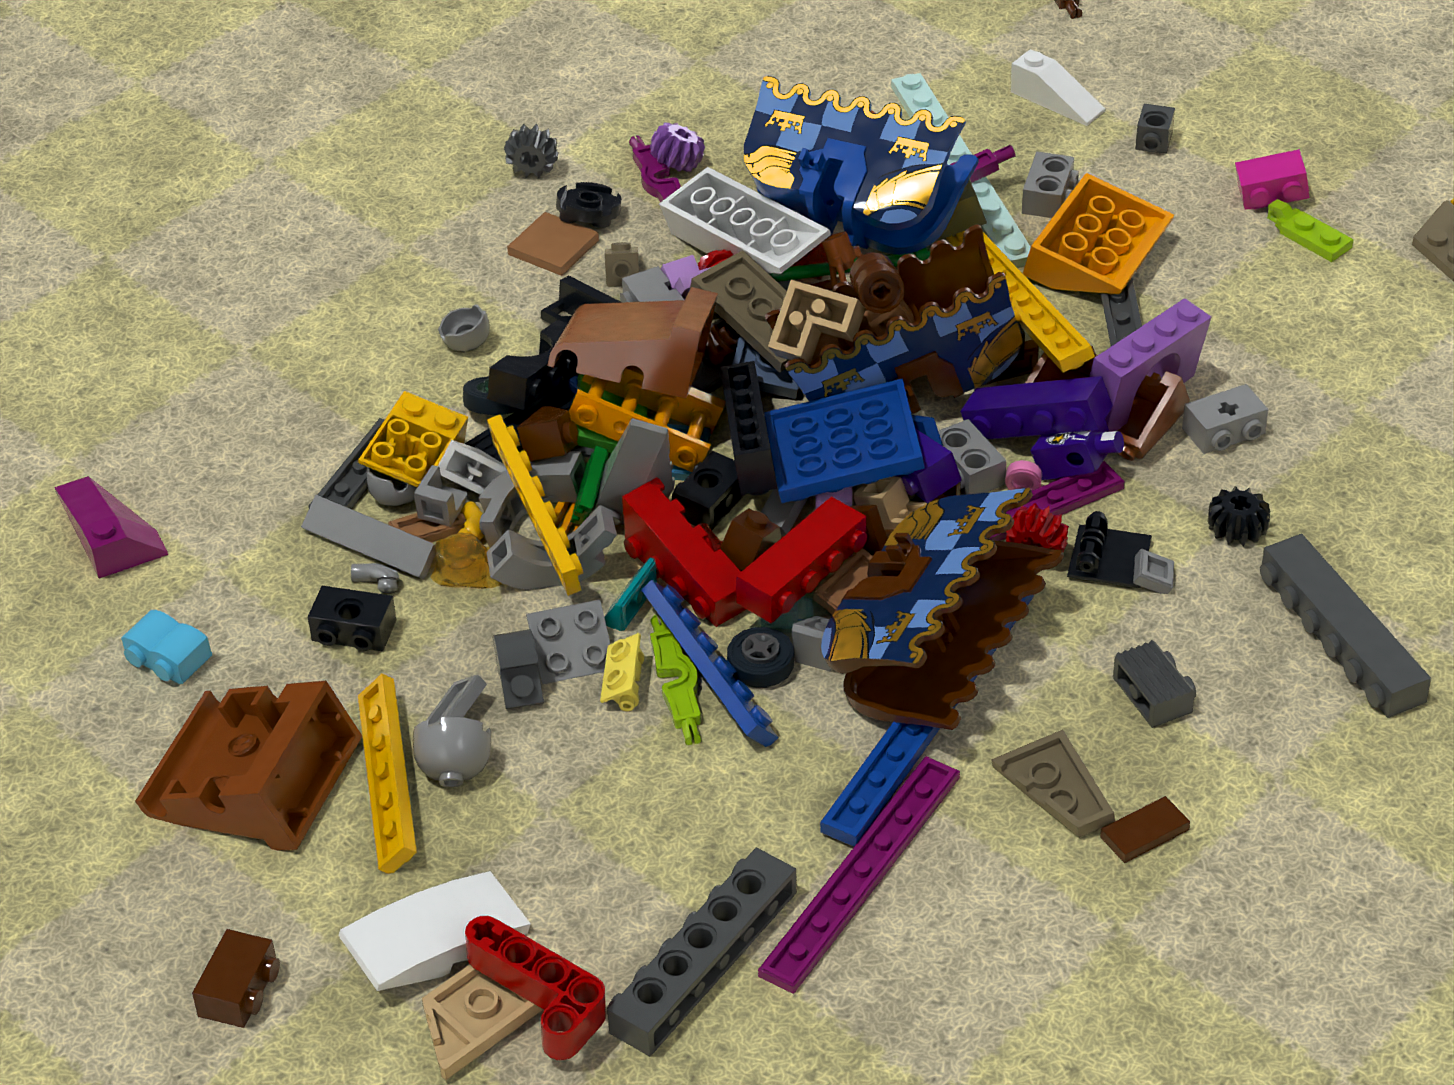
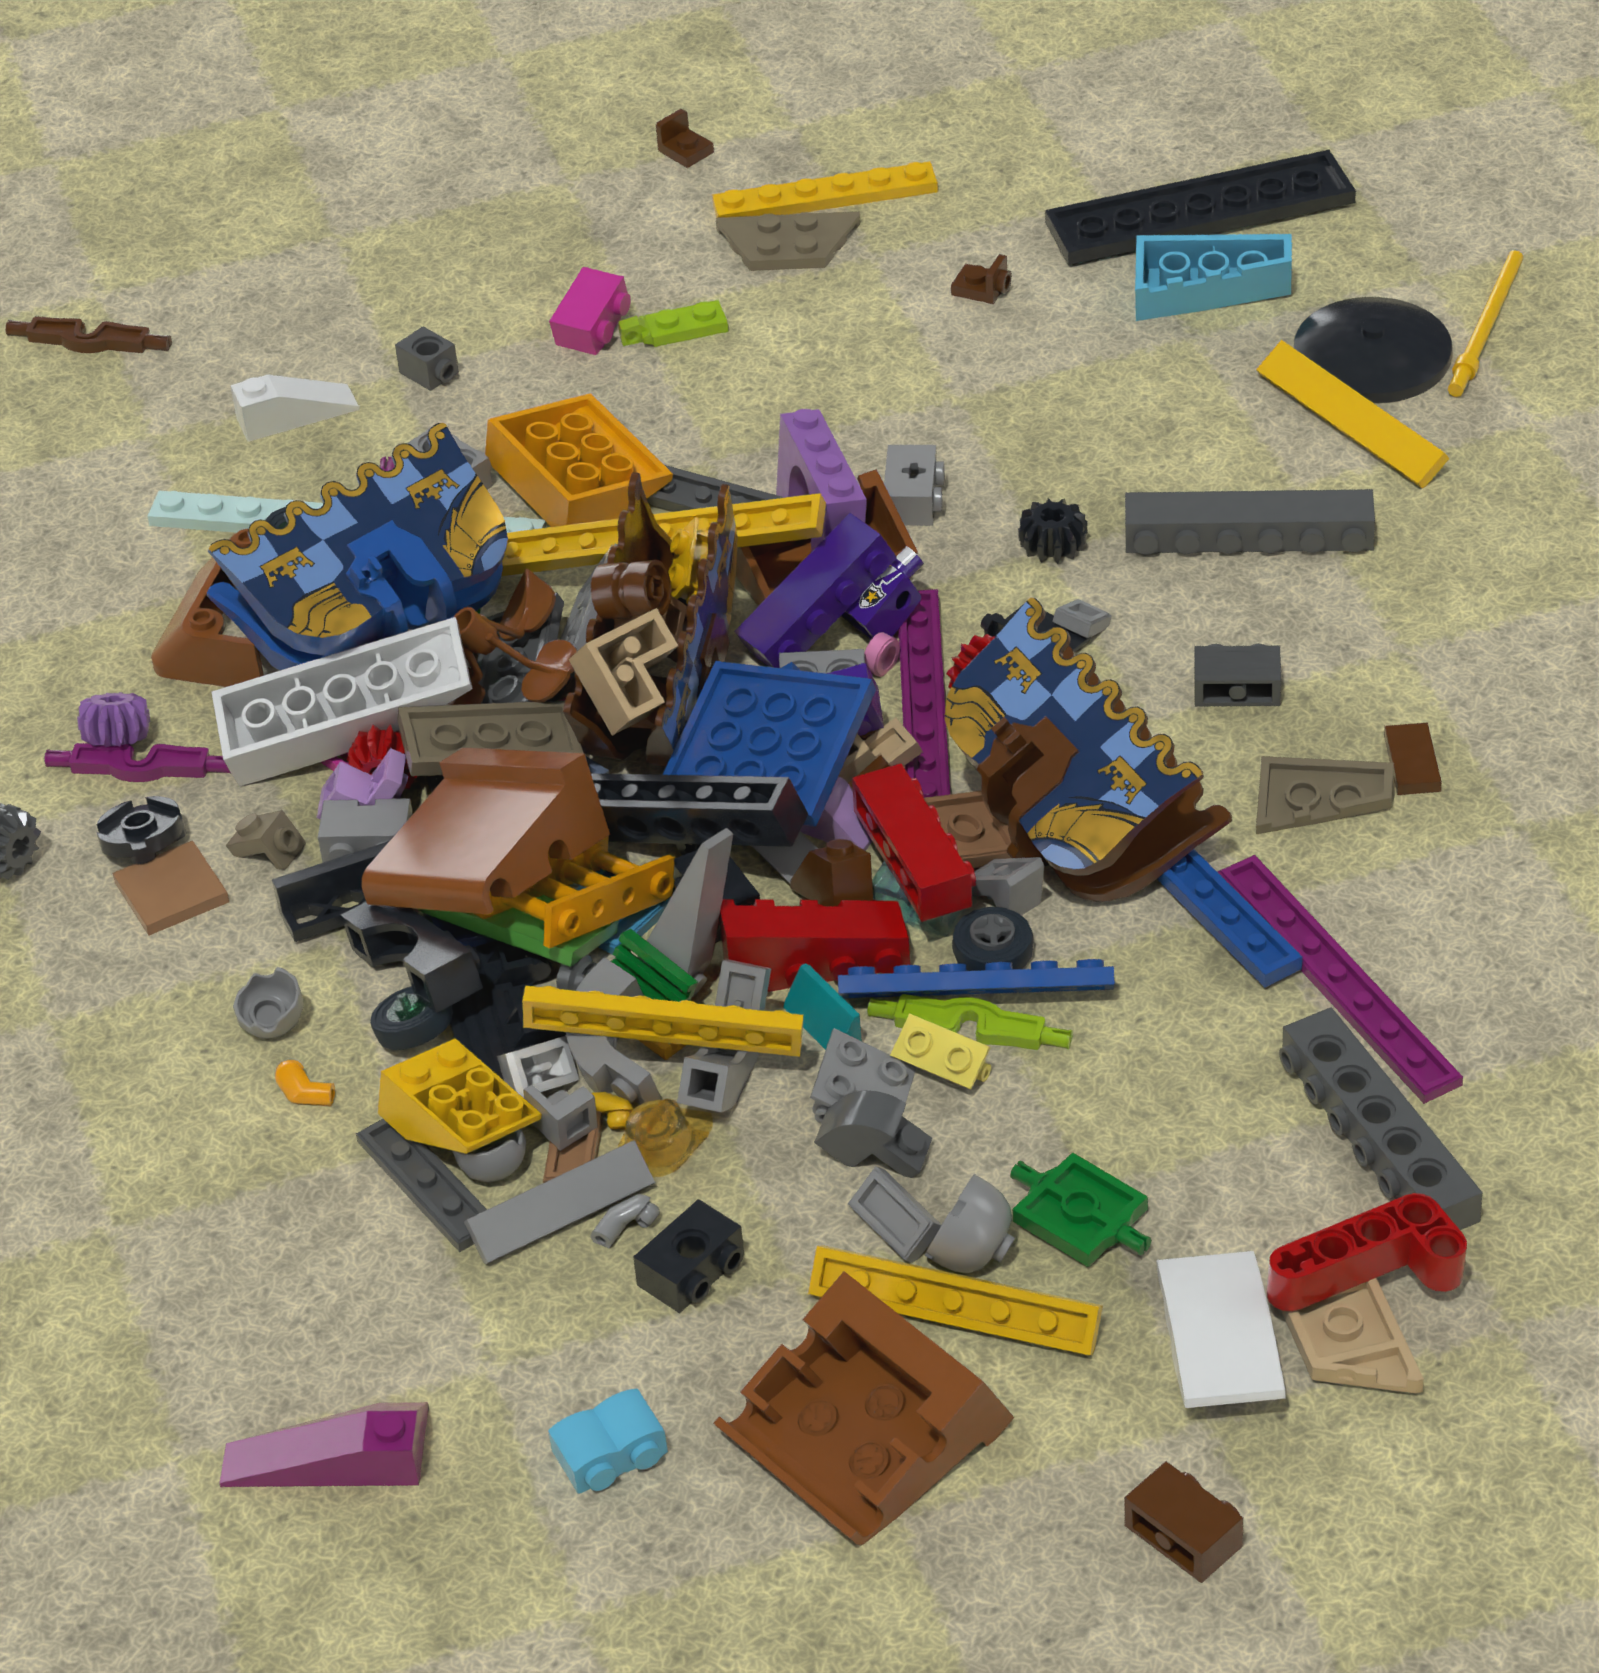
camera: 60 degrees left, 0 degrees up
(412, 367) = (299, 1088): none -> light orange arm
(516, 808) = (1080, 1209): none -> green plate
(548, 433) = (558, 962): reddish brown slope -> none

